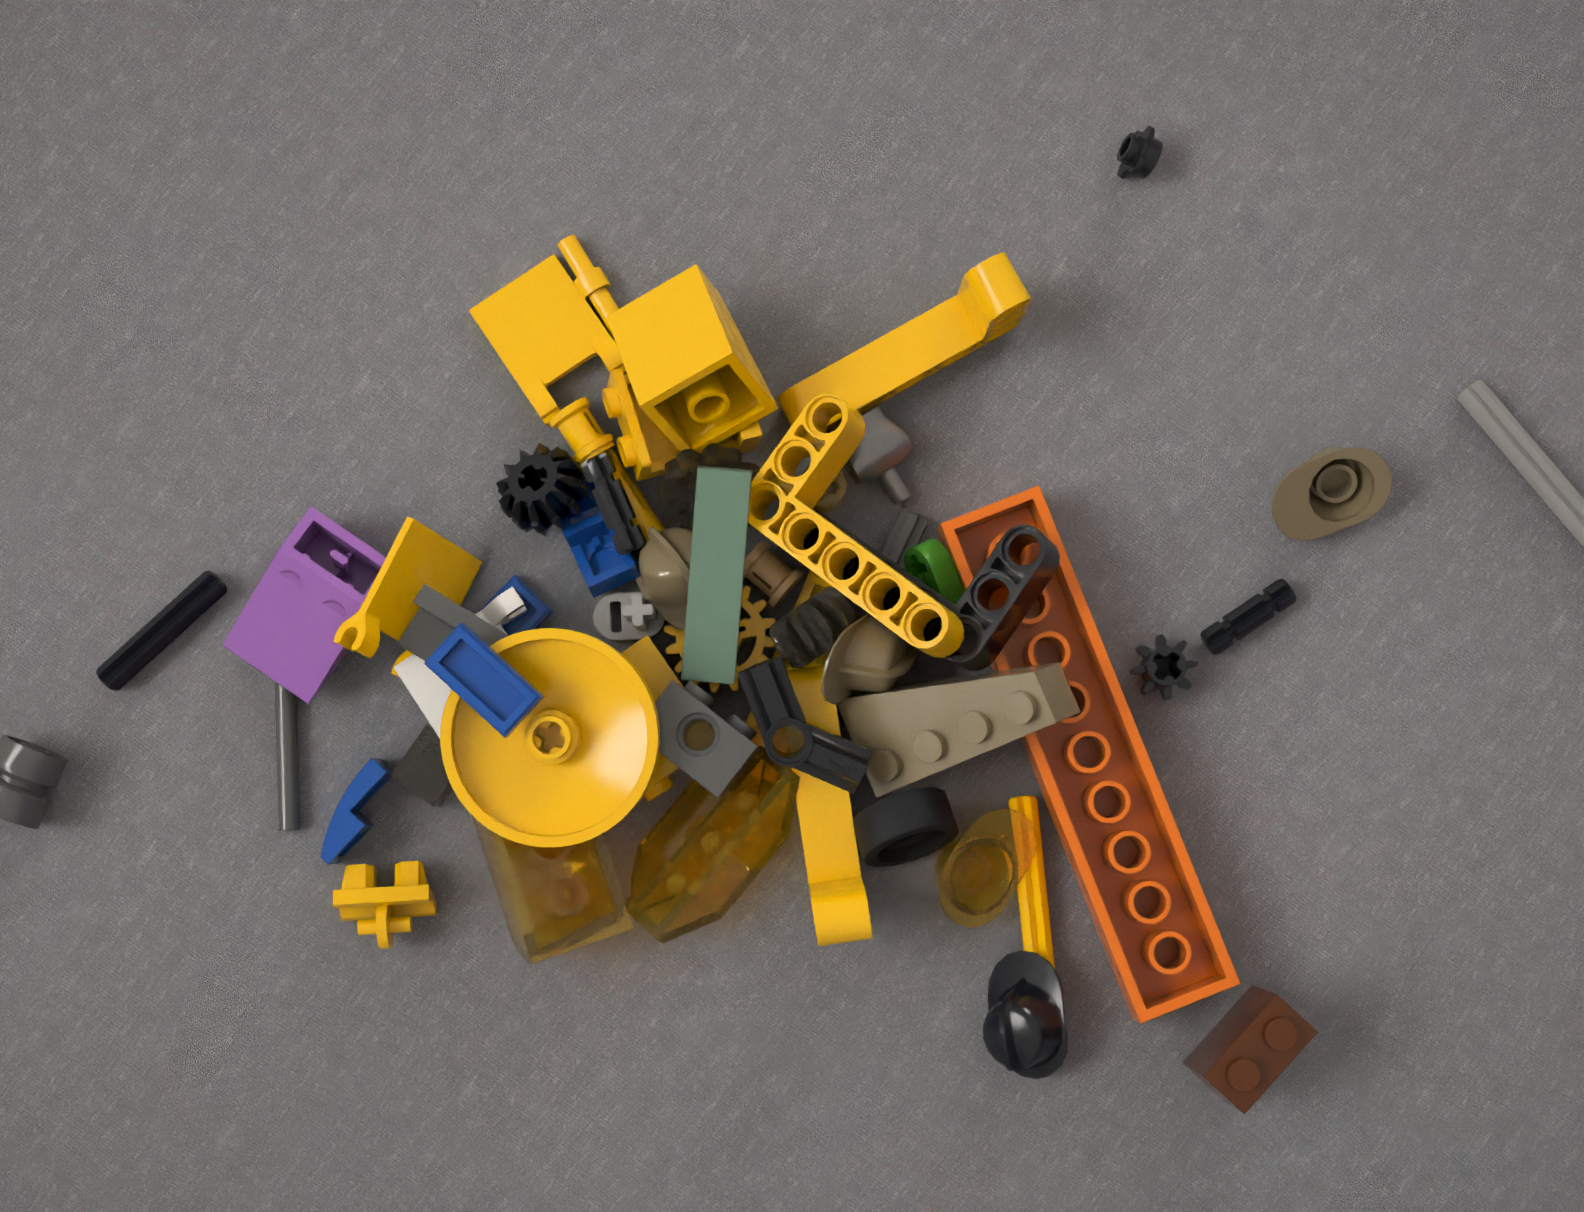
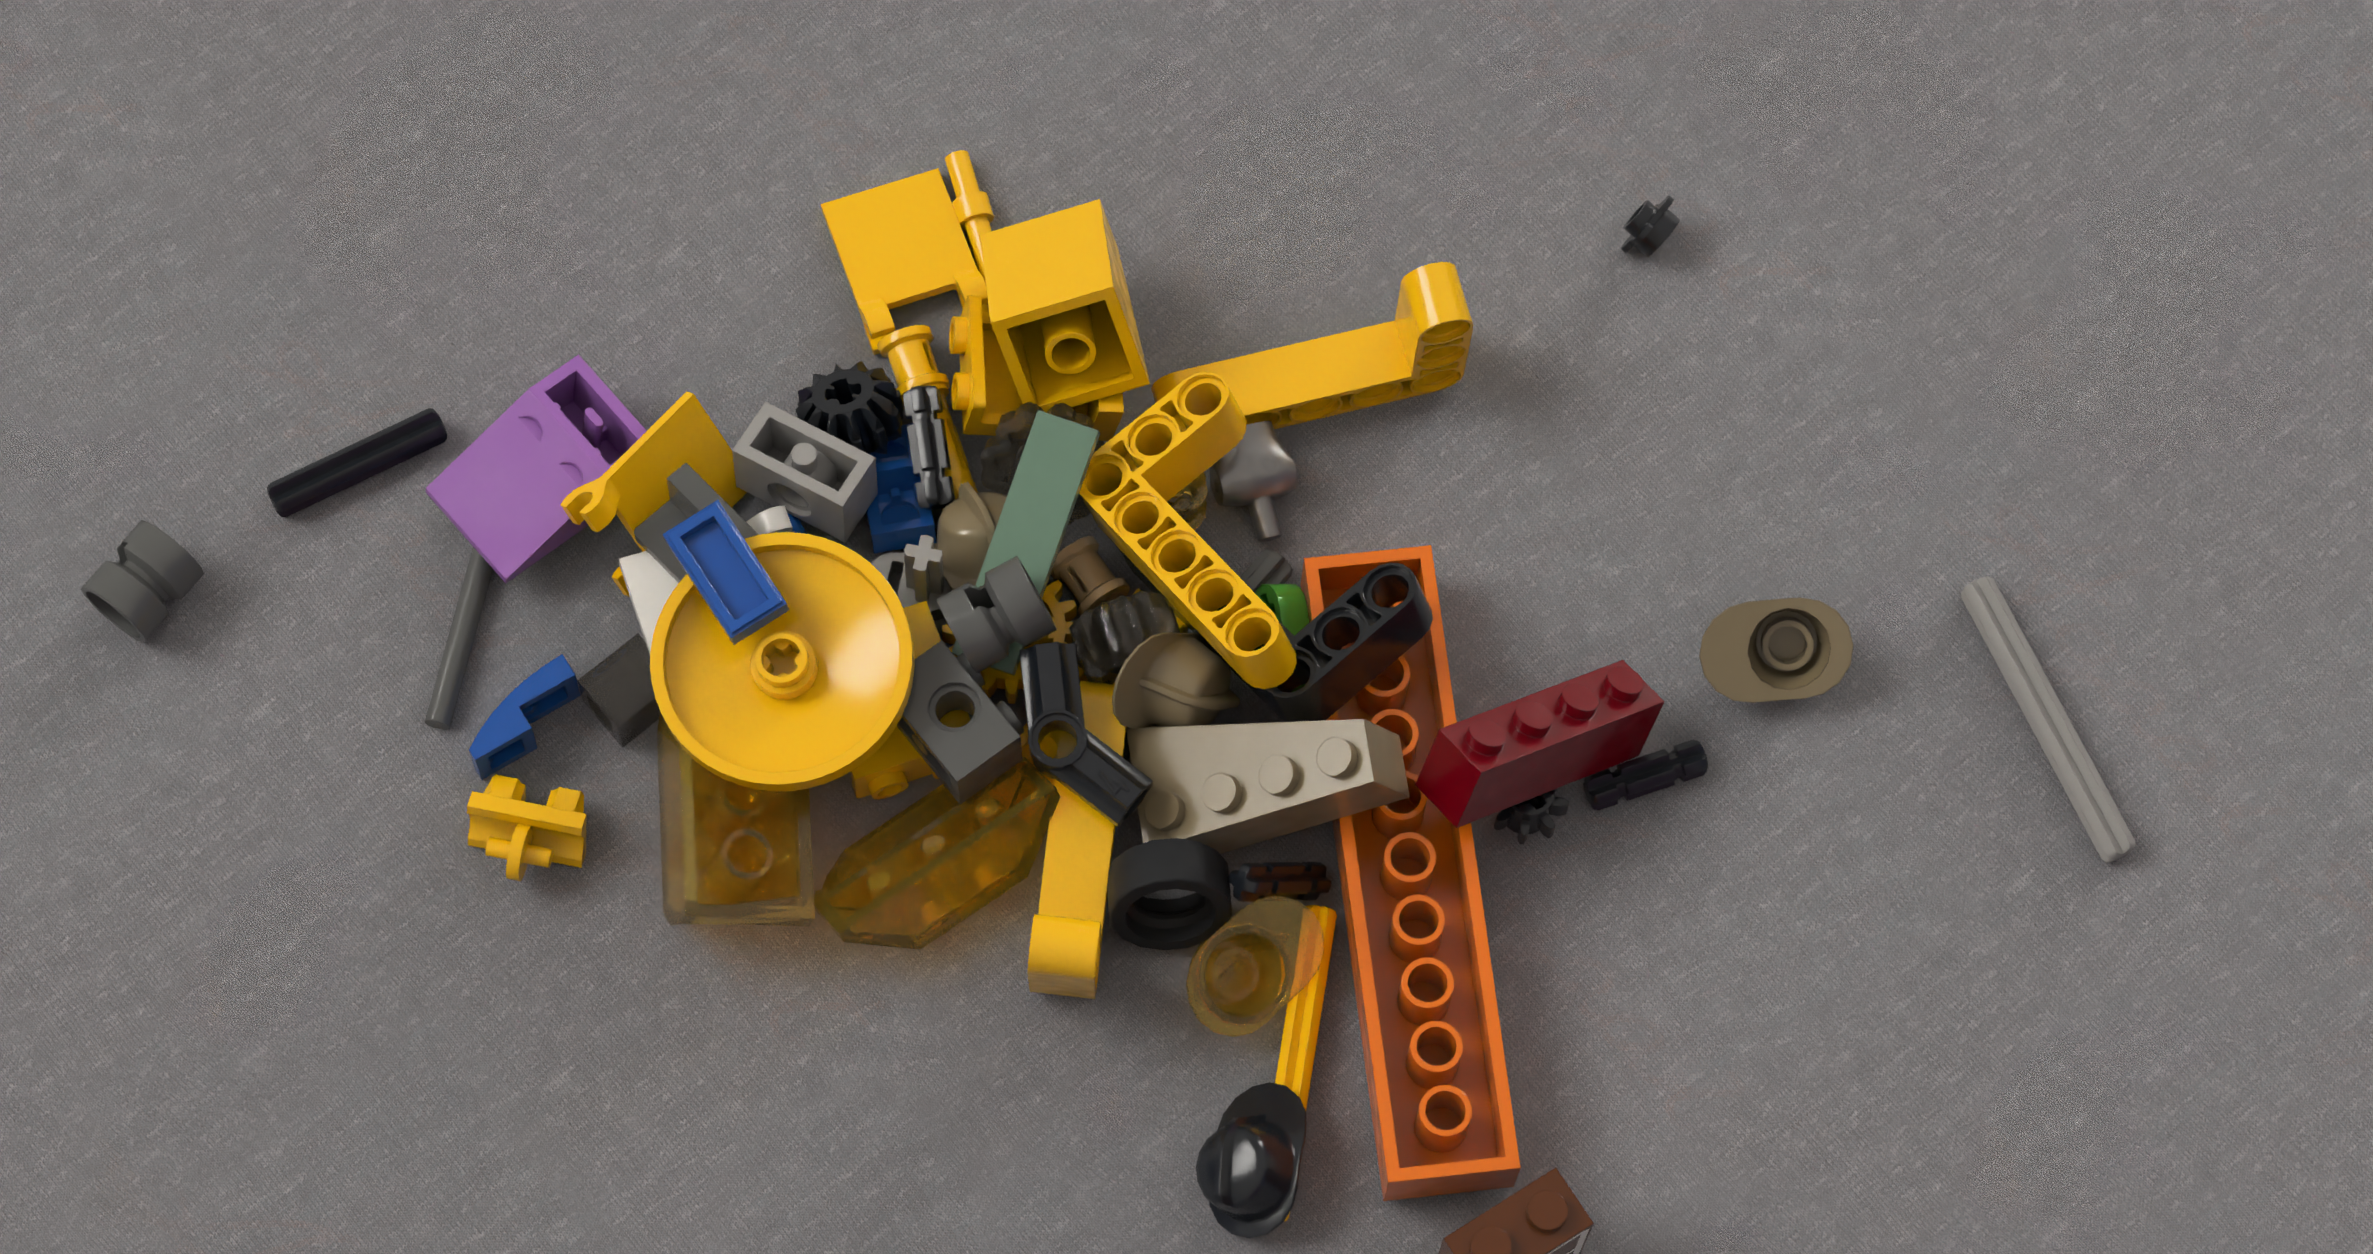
camera: 10 degrees right, 15 degrees down
(521, 553) = (805, 471): none -> light grey brick
(710, 650) = (996, 614): none -> dark grey wheel
(987, 790) = (1283, 879): none -> black axle
(1167, 632) = (1539, 743): none -> dark red brick

